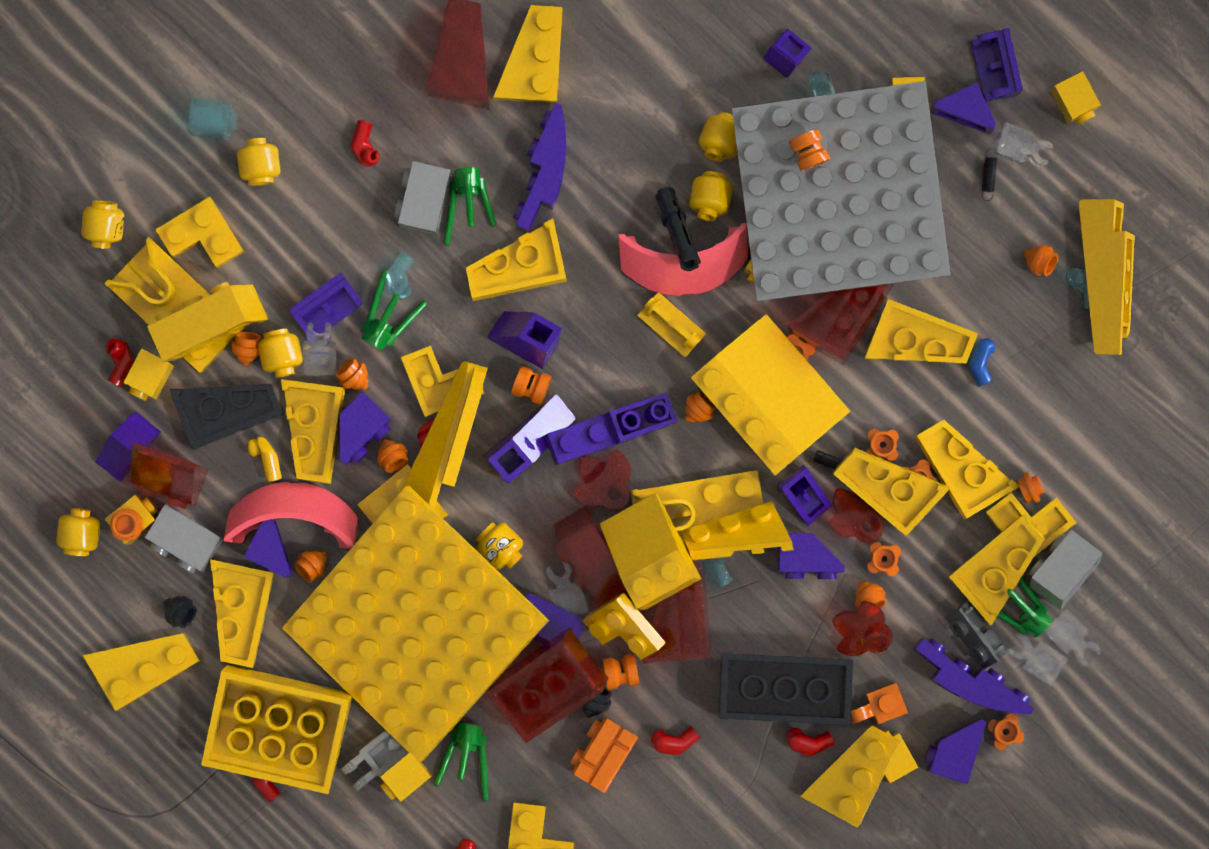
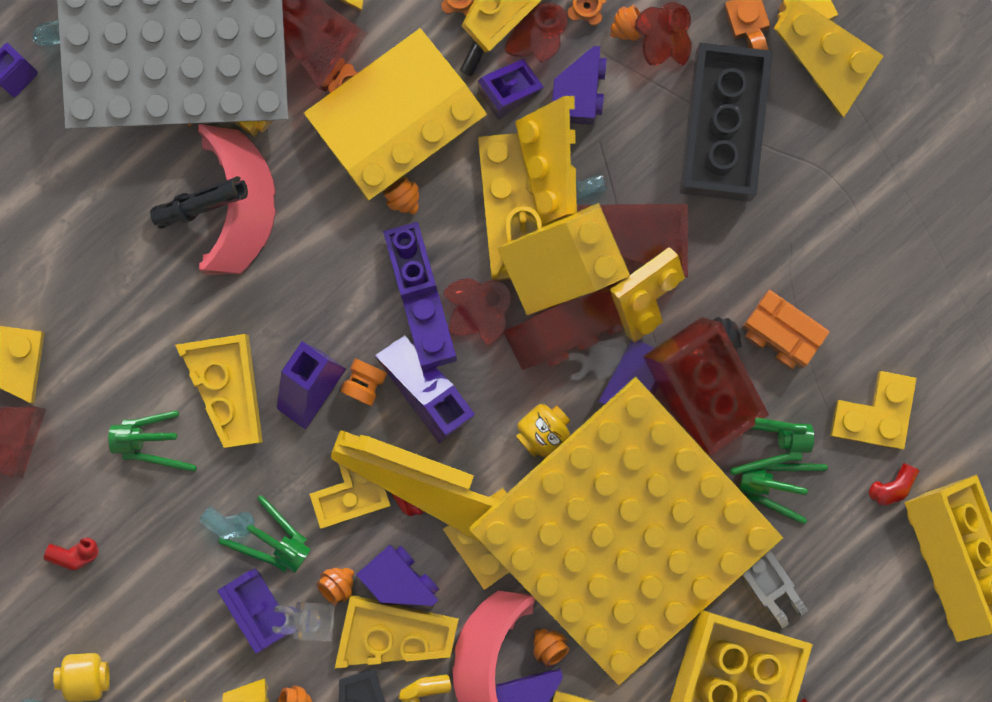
camera: 80 degrees left, 0 degrees up
(280, 352) = (304, 666): yellow head -> none
(392, 456) = (431, 546): orange plate -> none
(404, 777) = (798, 555): yellow brick -> none
(423, 198) = (140, 490): light grey brick -> none
(509, 767) = (793, 437): none -> green plant
(550, 158) = (106, 343): dark purple slope -> none
(613, 671) = (691, 312): orange wheel -> none
(671, 324) = (307, 220): yellow hinge -> none
(674, 744) = (778, 251): red arm -> none
(711, 195) = (164, 165): yellow head -> none
(719, 137) = (98, 149): yellow head -> none
(807, 745) = (787, 105): red arm -> none
(813, 156) = (128, 38): orange wheel -> none

